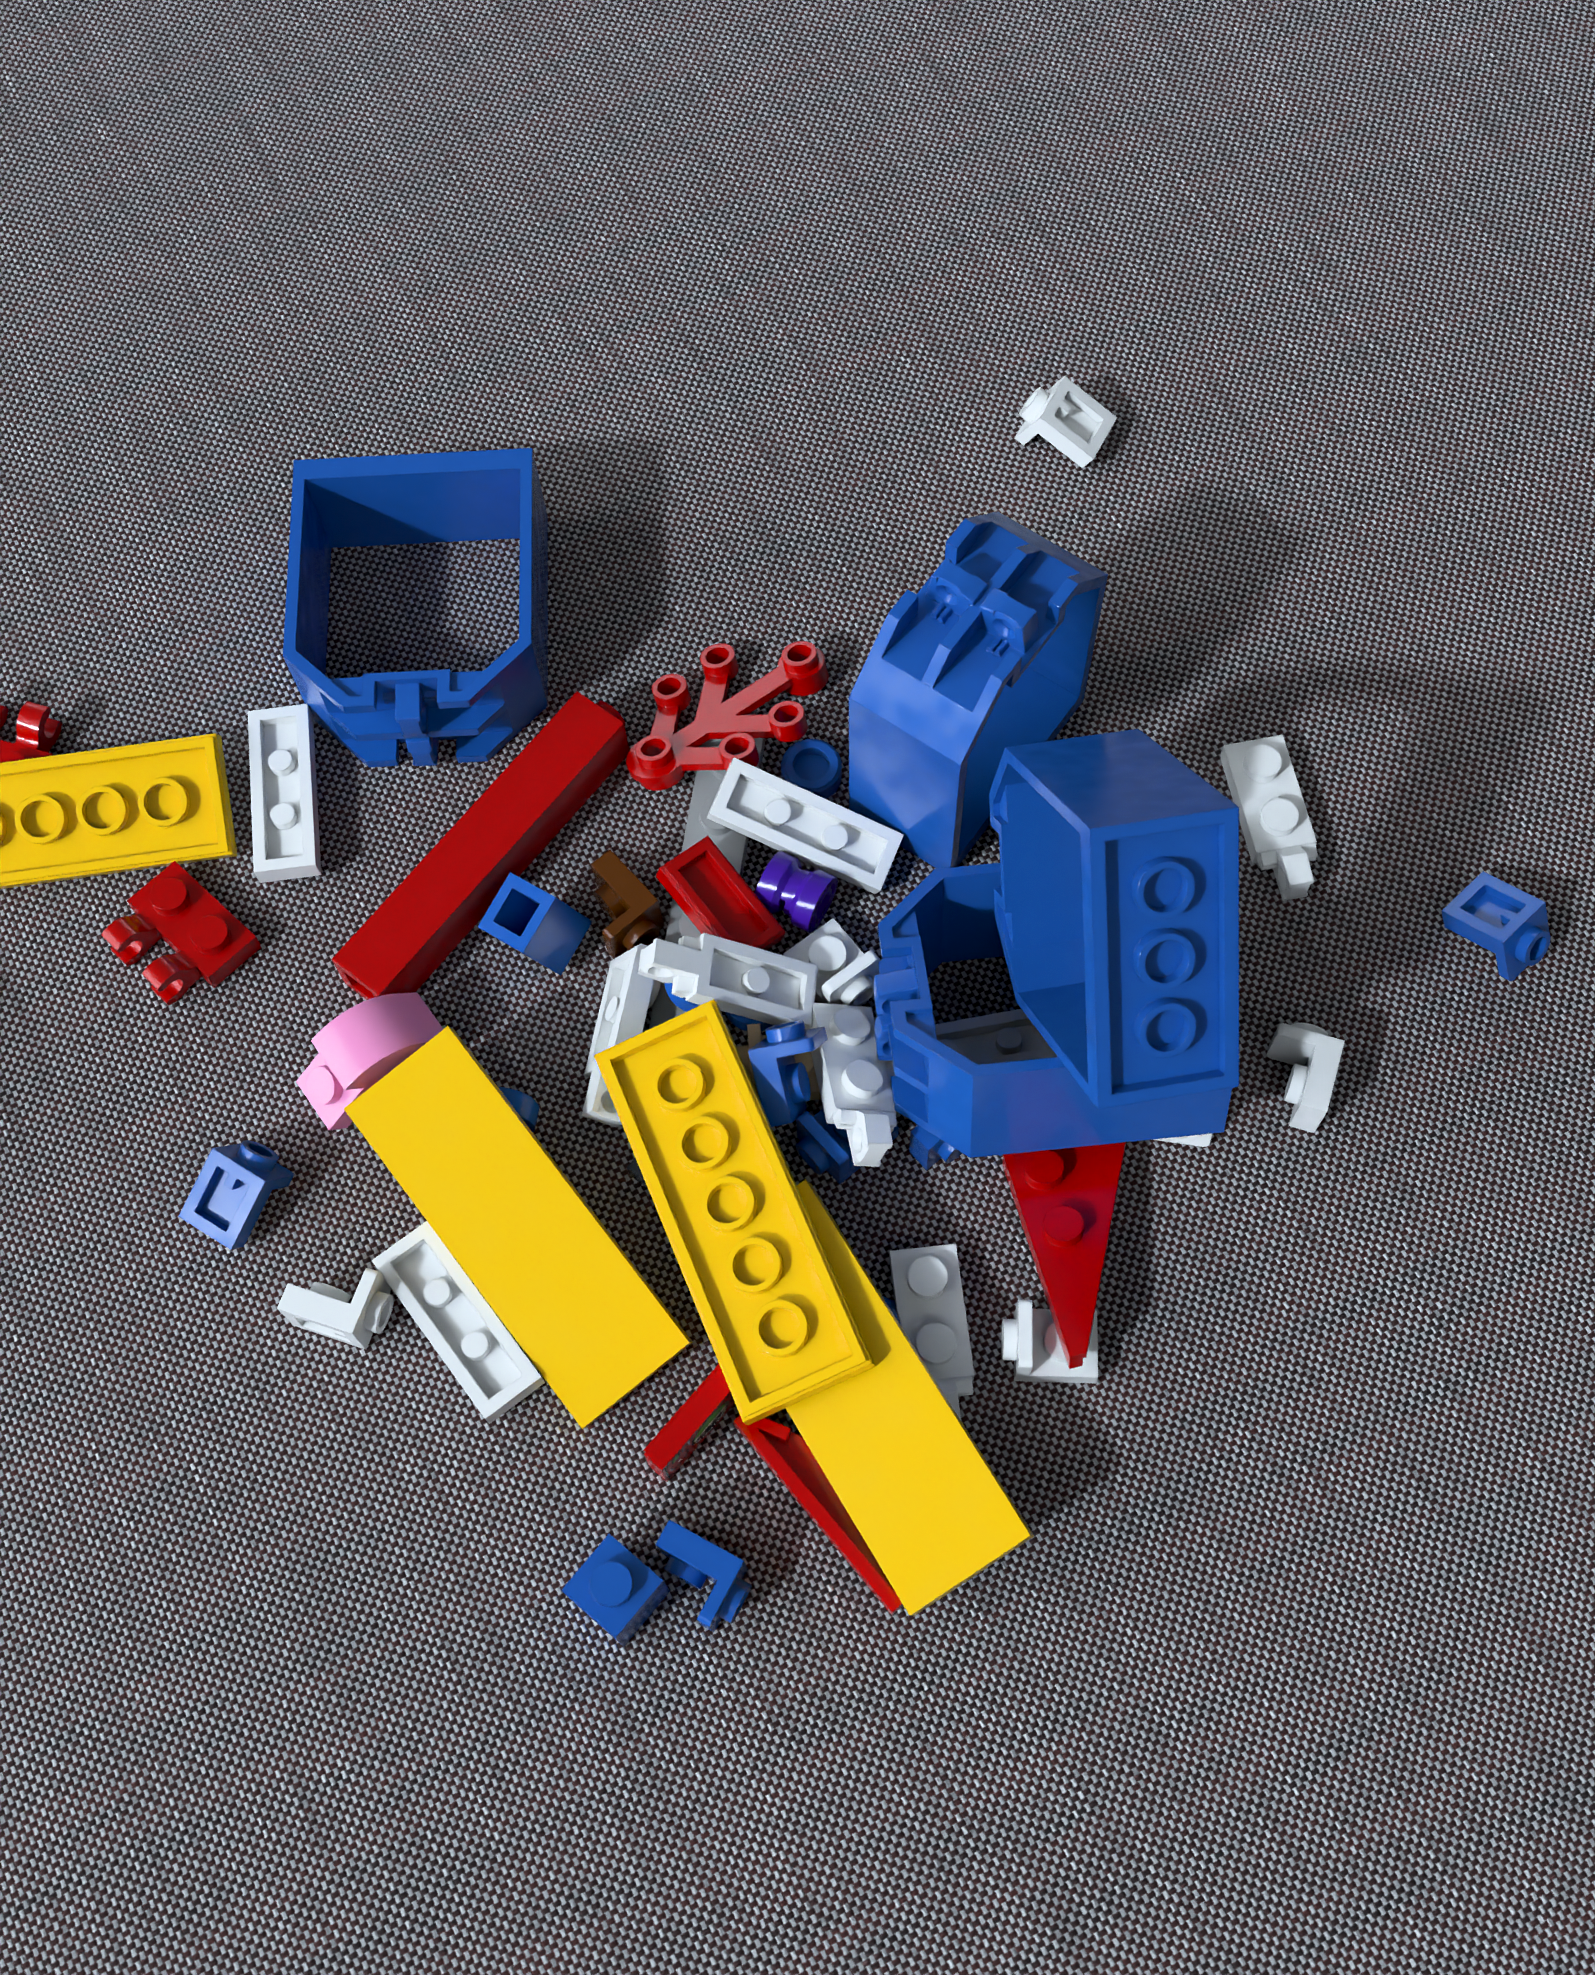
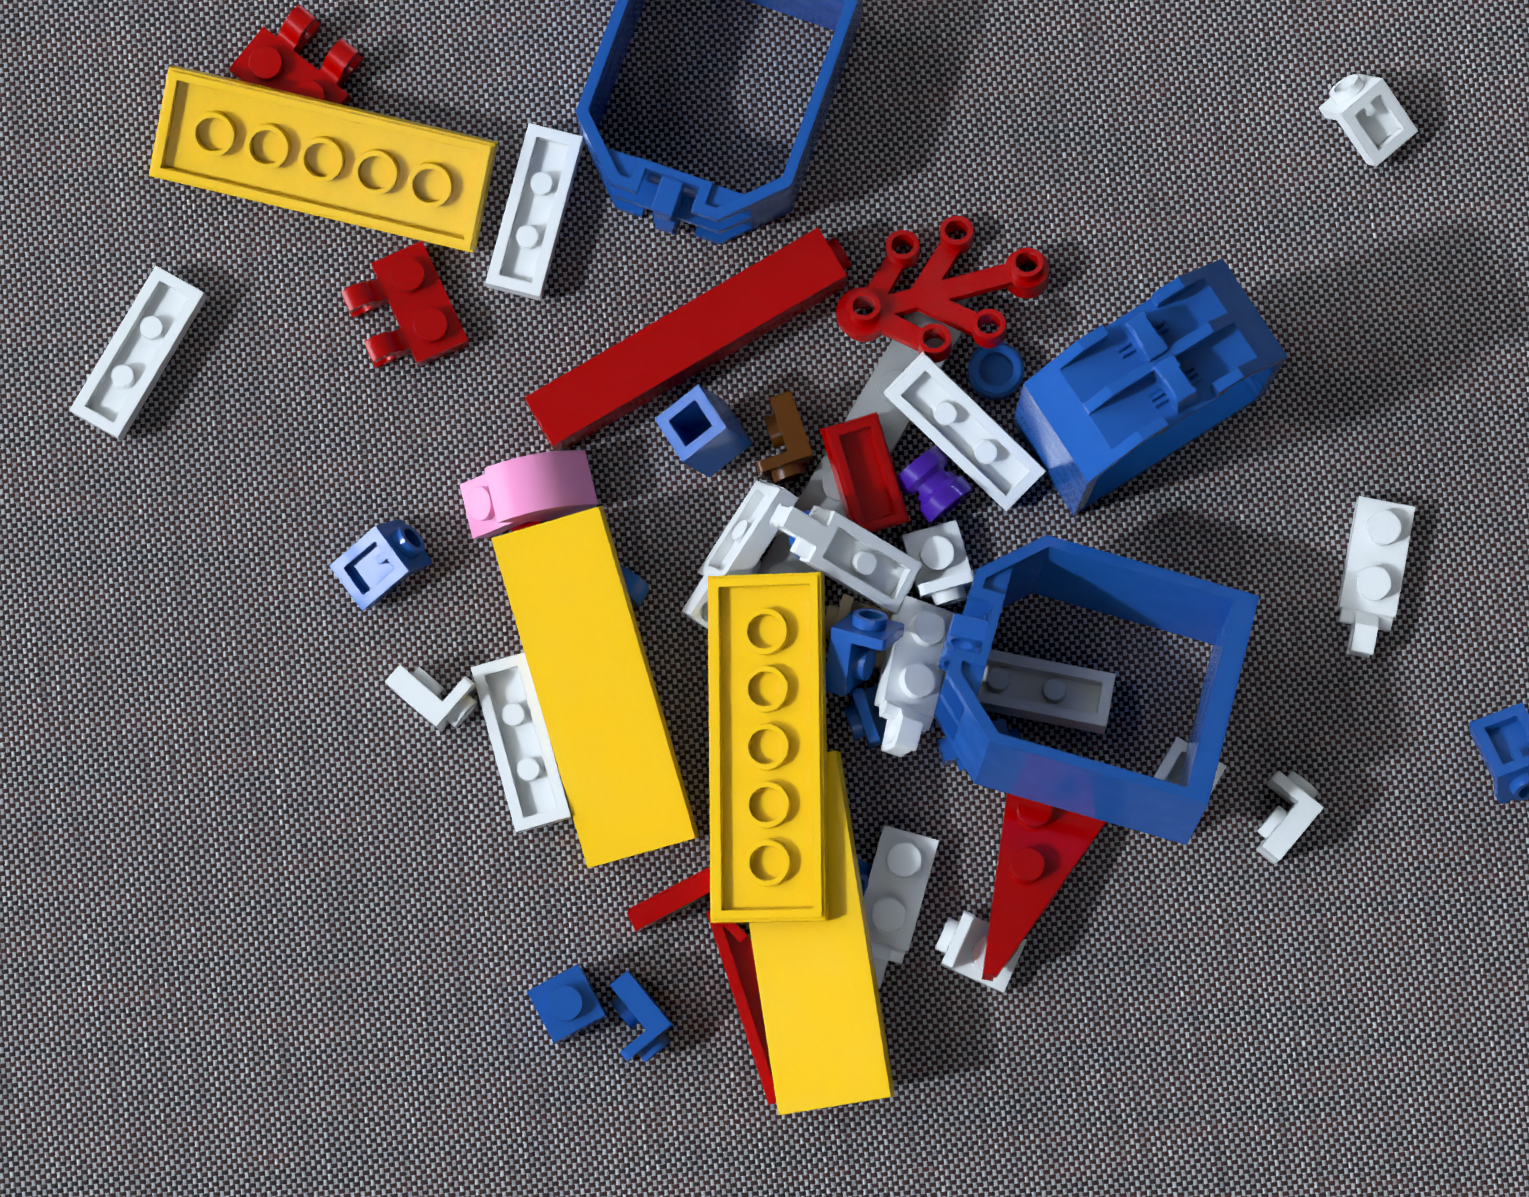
camera: 25 degrees right, 15 degrees up
(1121, 913) = (1151, 667): blue container -> none

